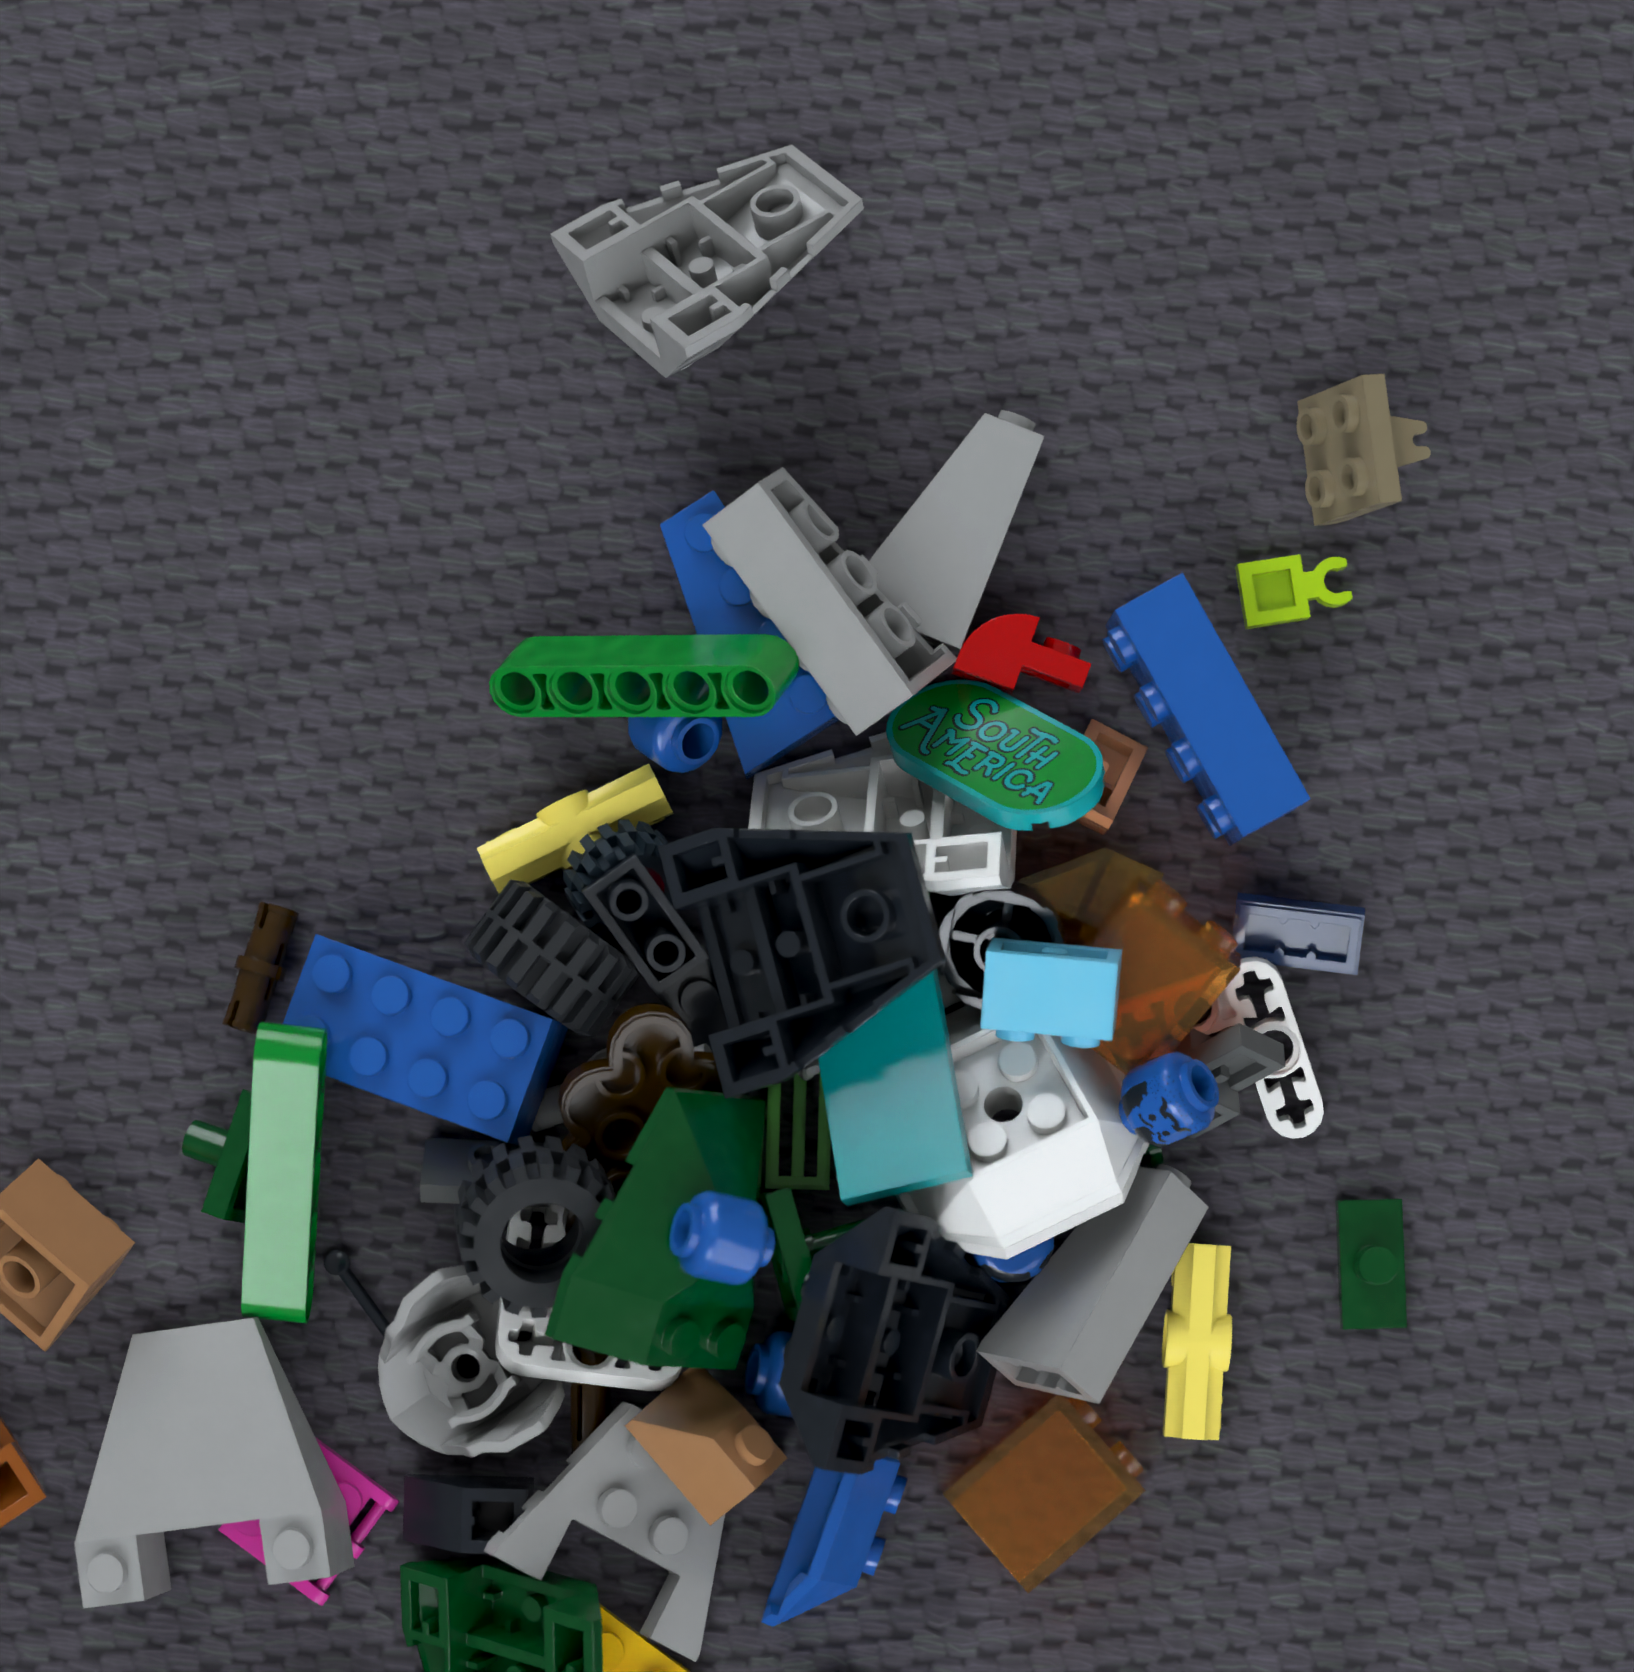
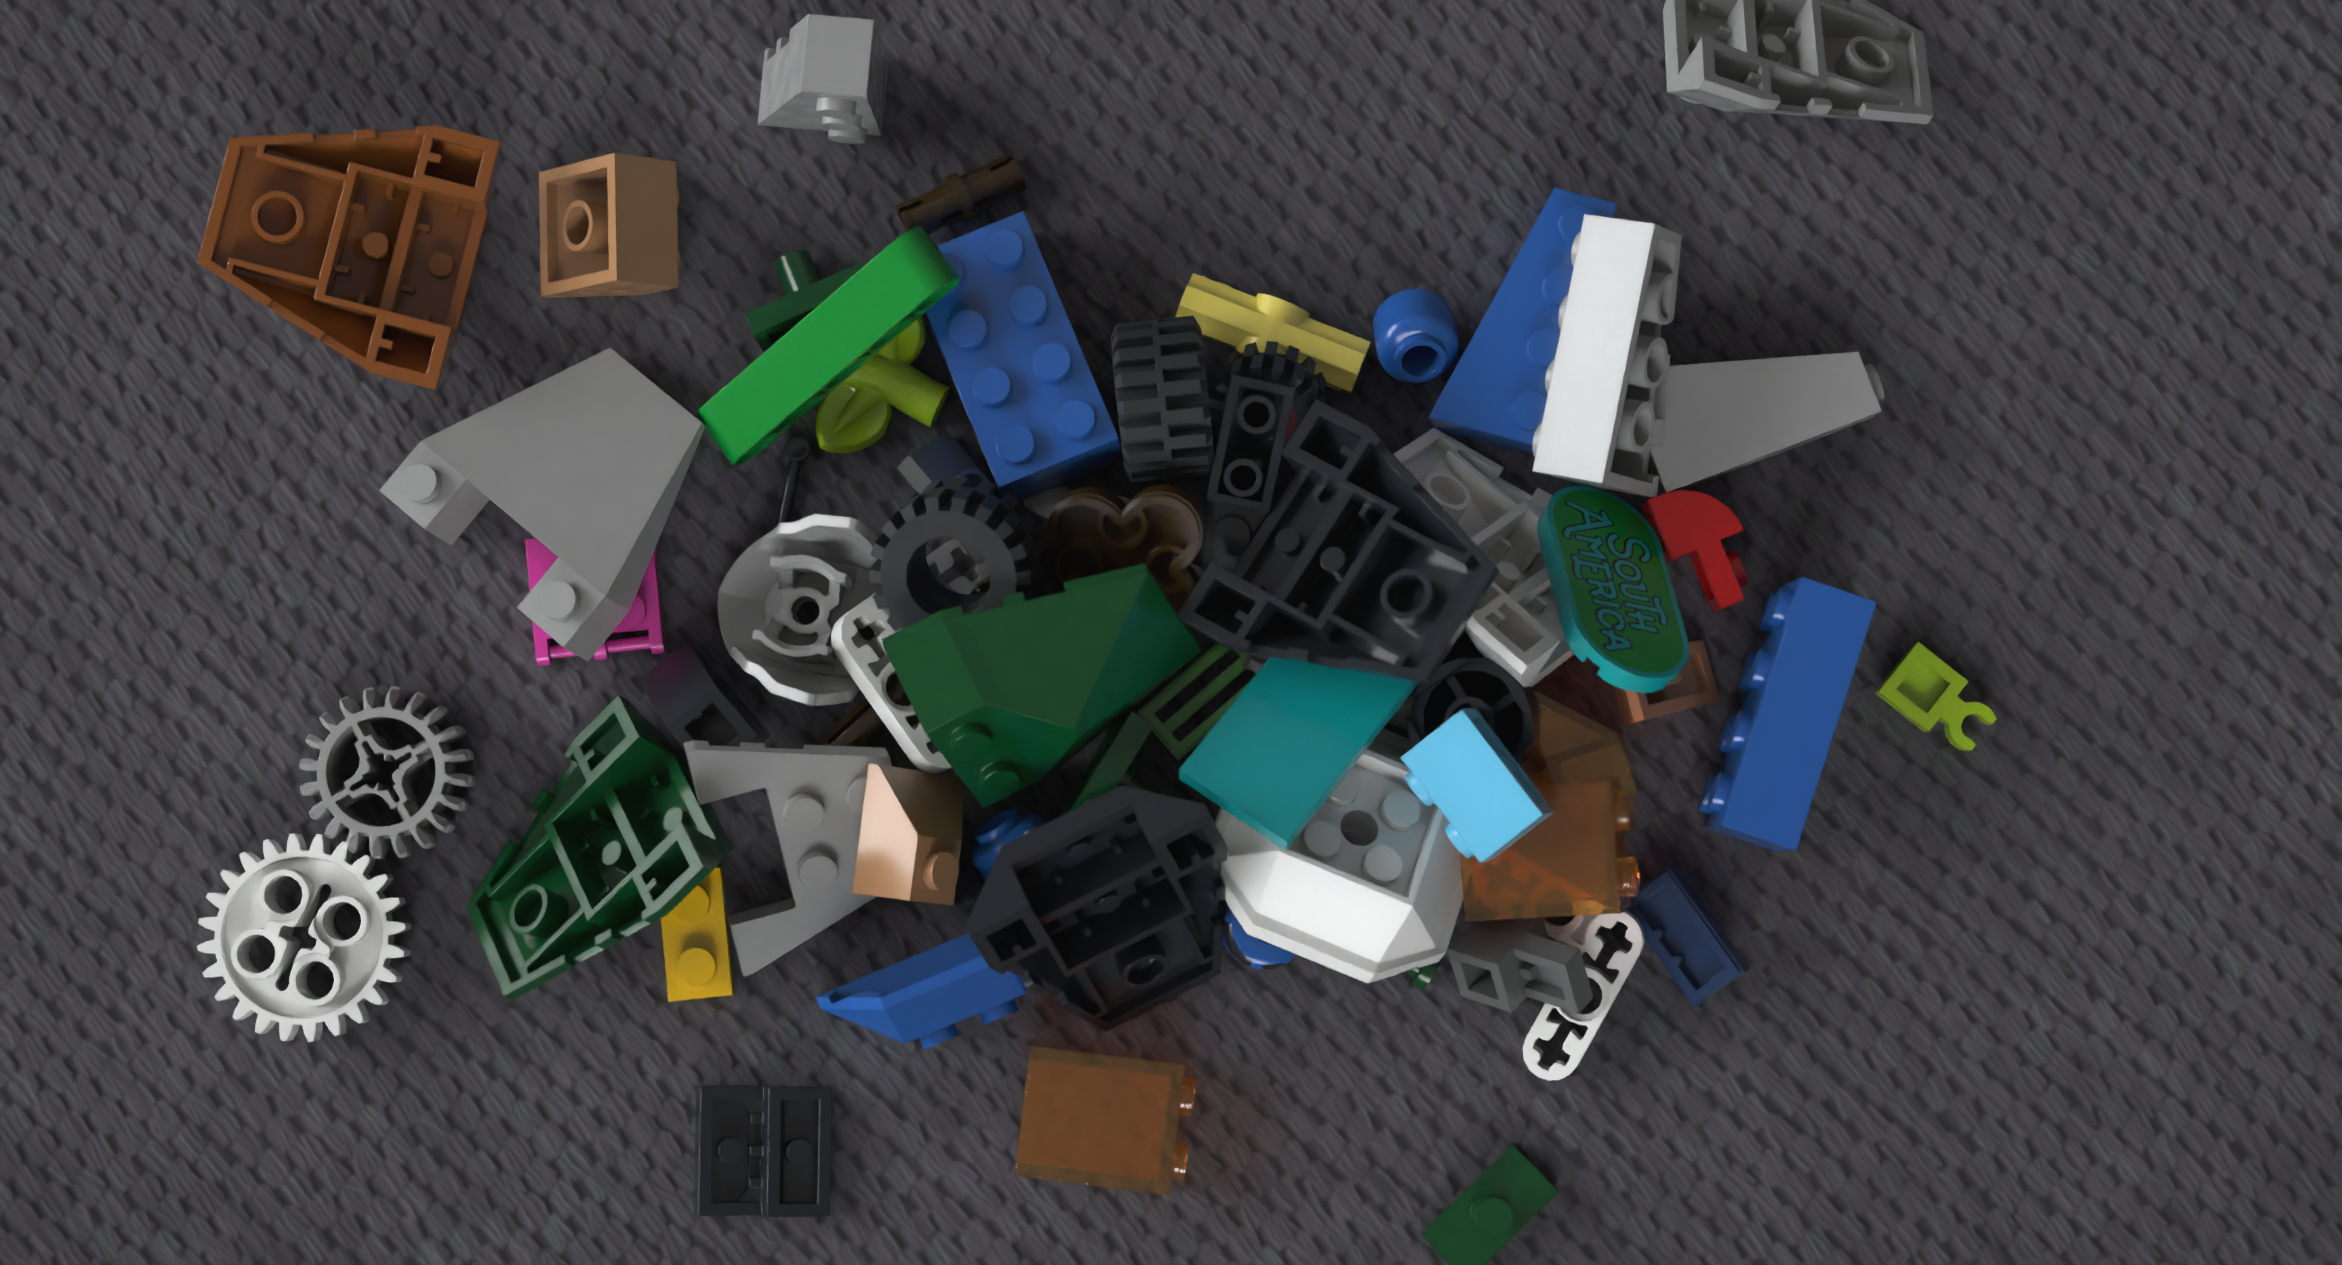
camera: 50 degrees right, 0 degrees up
(81, 991) = (826, 79): none -> light grey wedge
(351, 1187) = (861, 407): none -> lime plant
(645, 676) = (1433, 277): green beam -> none
(721, 1238) = (1071, 703): blue head -> none
(1097, 1291) = (1284, 1024): light grey slope -> none
(1168, 1099) = (1475, 946): blue head -> none
(1197, 1343) = (1314, 1133): light yellow piece -> none
(1354, 449) = (2085, 650): dark tan plate -> none

